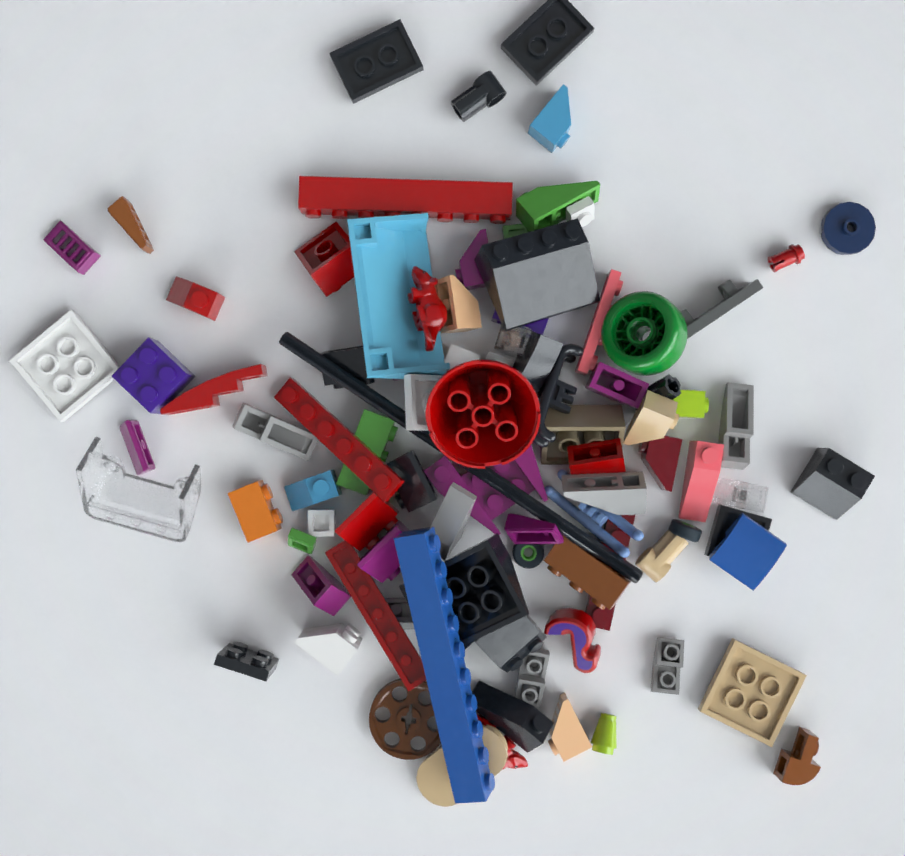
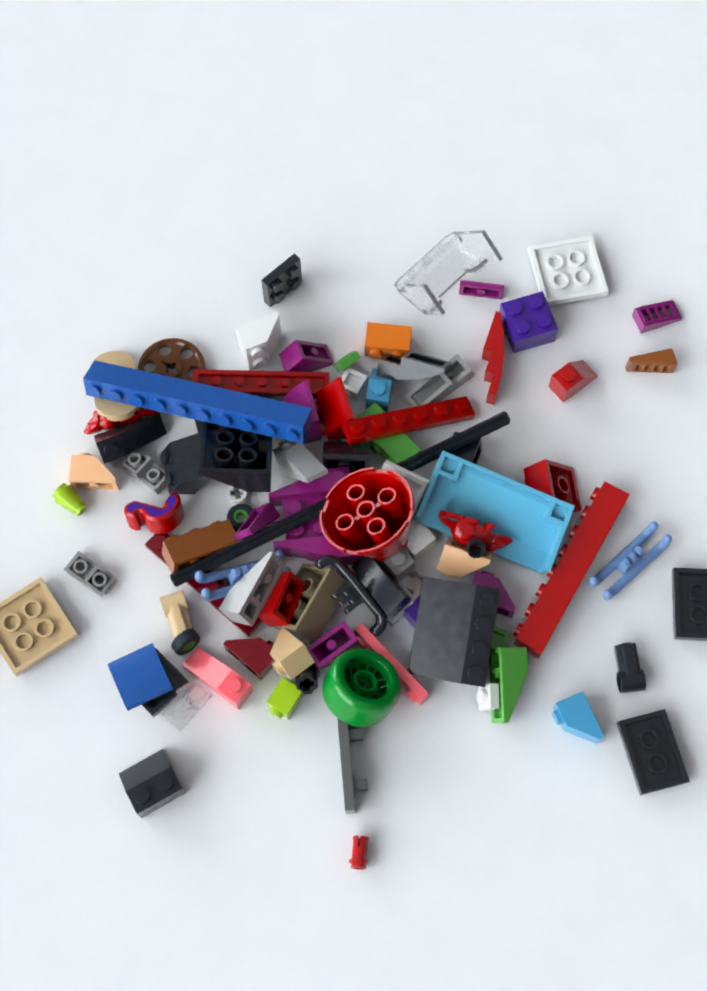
camera: 125 degrees right, 20 degrees down
(277, 466) = (410, 366): none -> slope
(367, 147) = (630, 561): none -> medium blue piece
(446, 294) = (475, 551): none -> black hinge
(737, 425) = (244, 730): light grey slope -> none
(835, 230) = (359, 938): dark blue plate -> none

